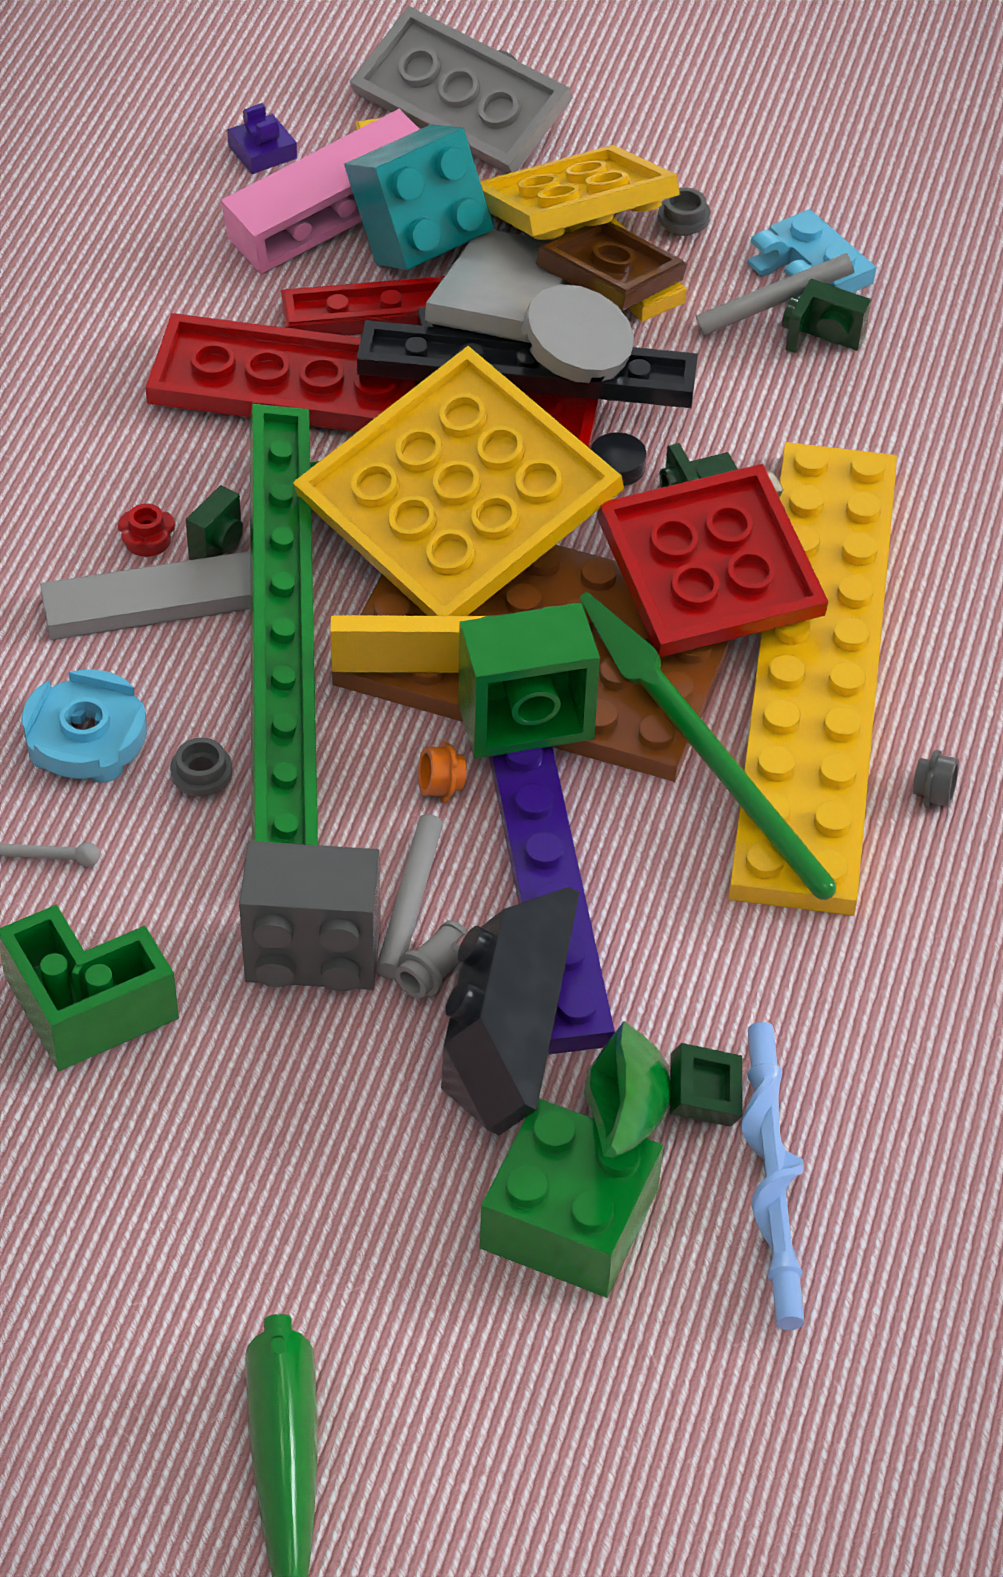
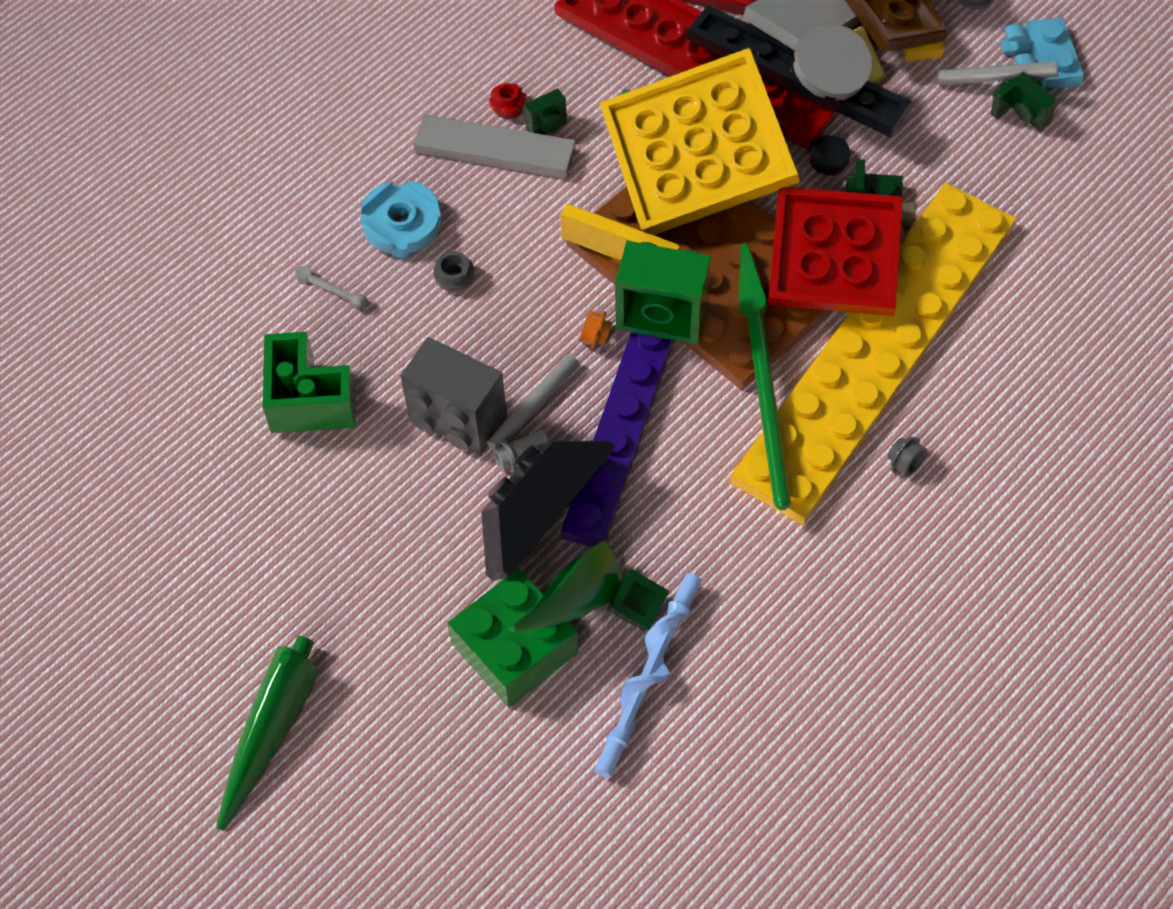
camera: 30 degrees right, 10 degrees up
(281, 631) = (542, 205): green plate -> none

